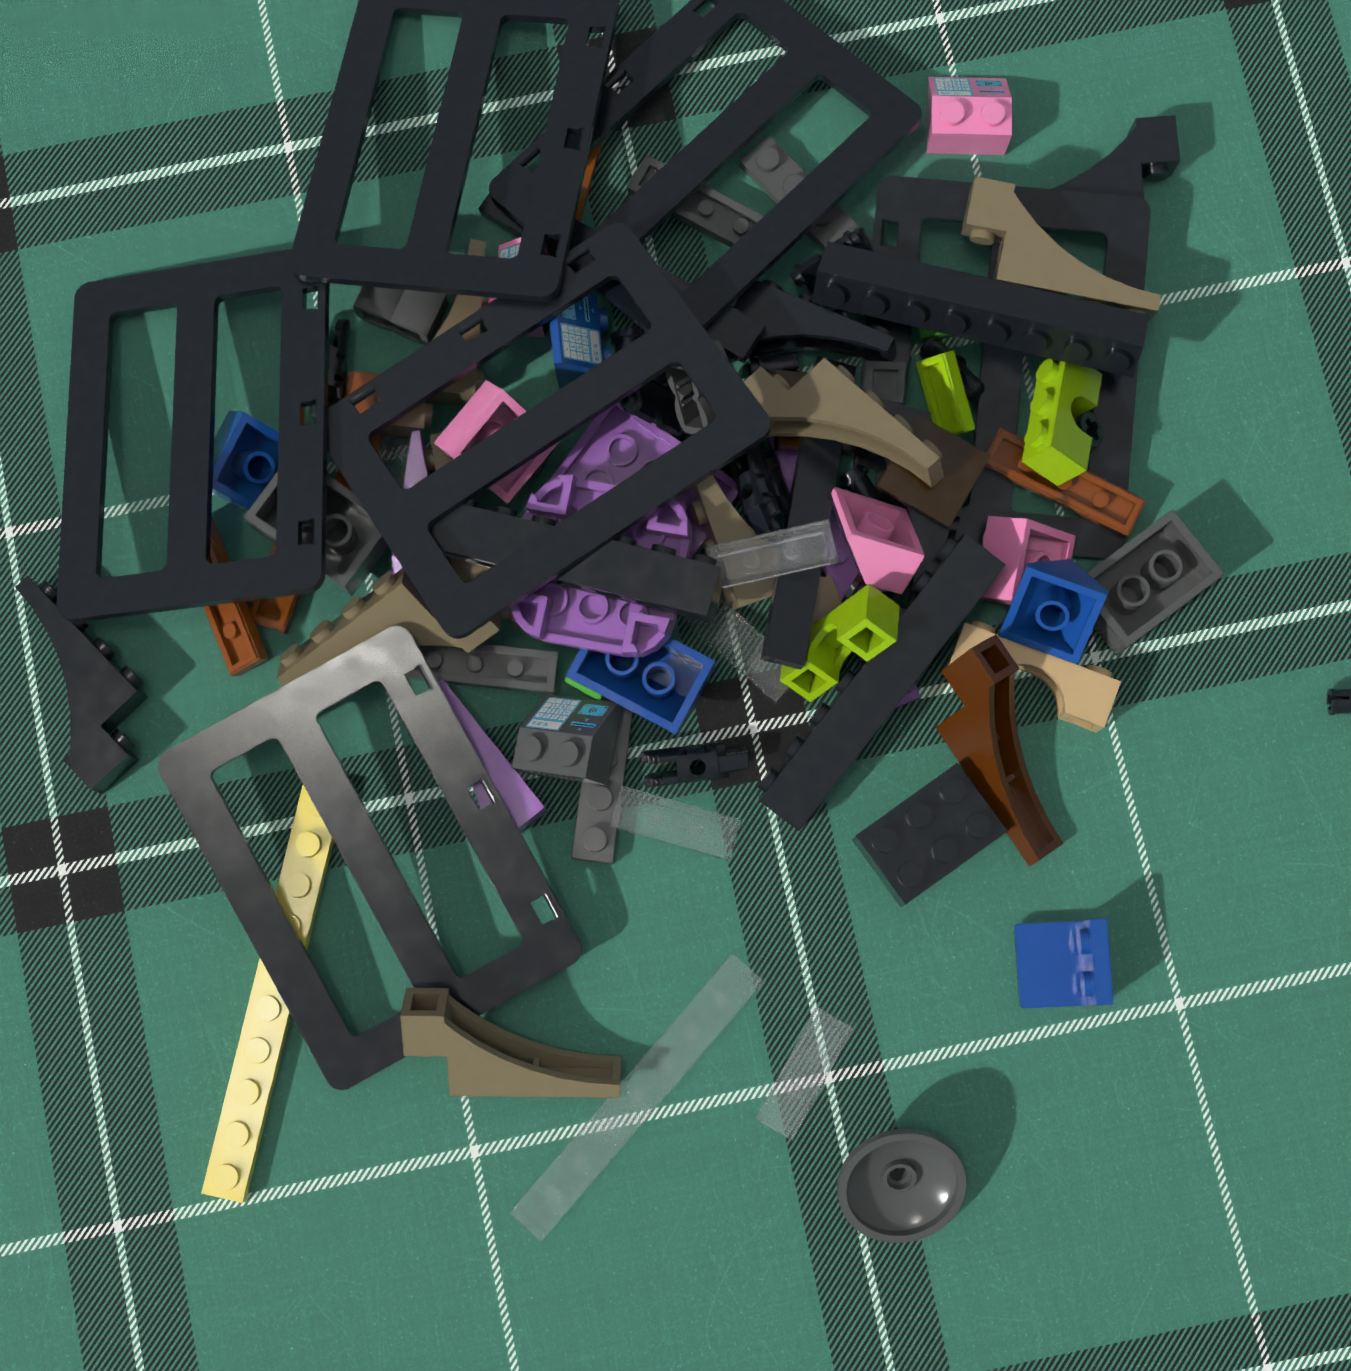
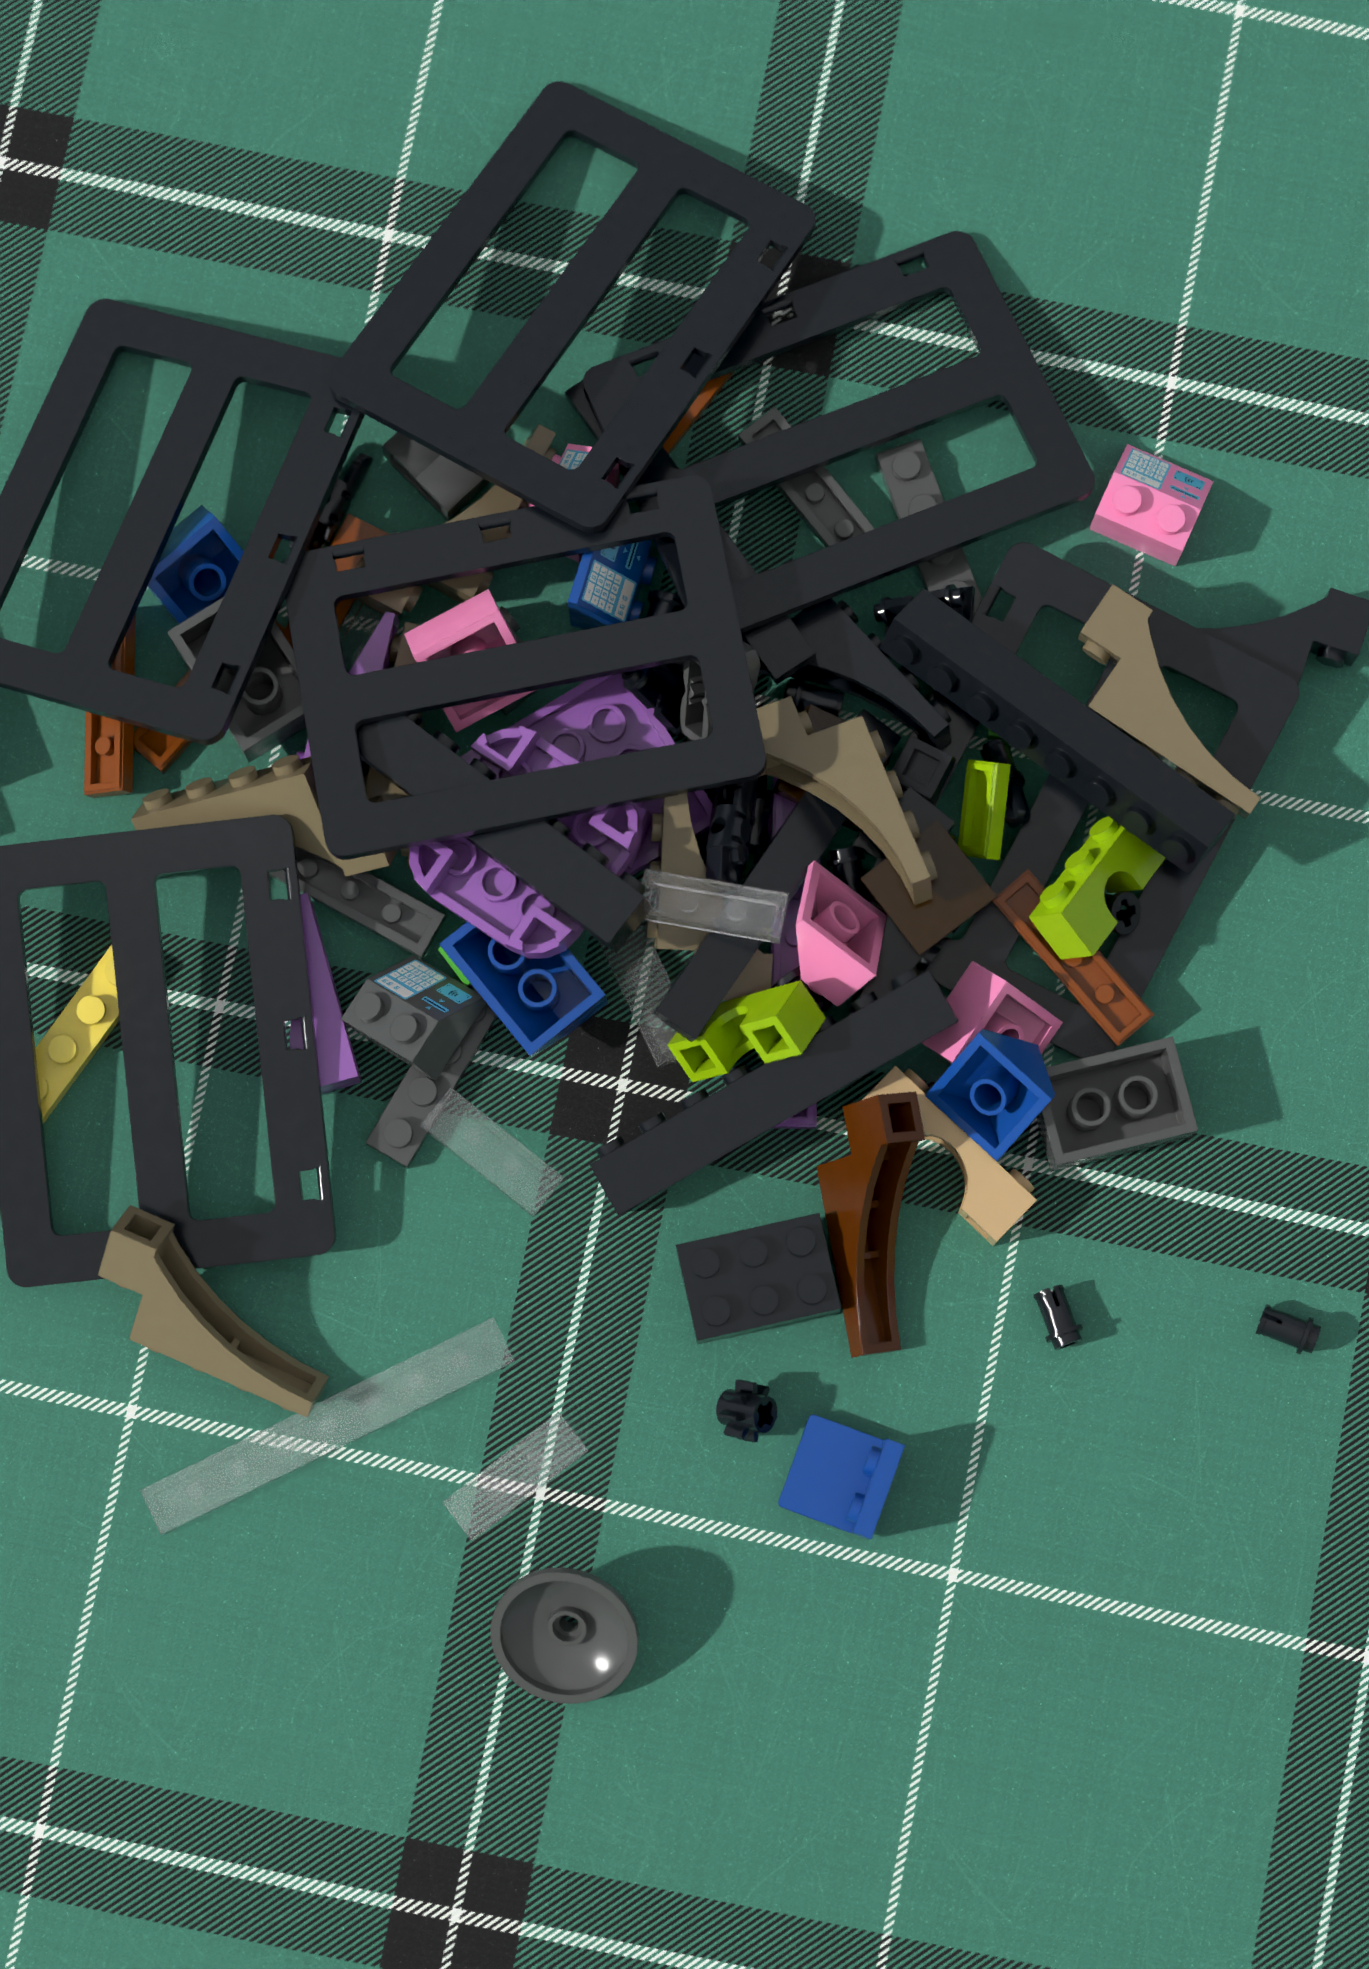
camera: 20 degrees right, 0 degrees up
(715, 765) = (564, 1101): black hinge -> none
(965, 943) = (746, 1410): none -> black gear
(1174, 767) = (1058, 1317): none -> black pin

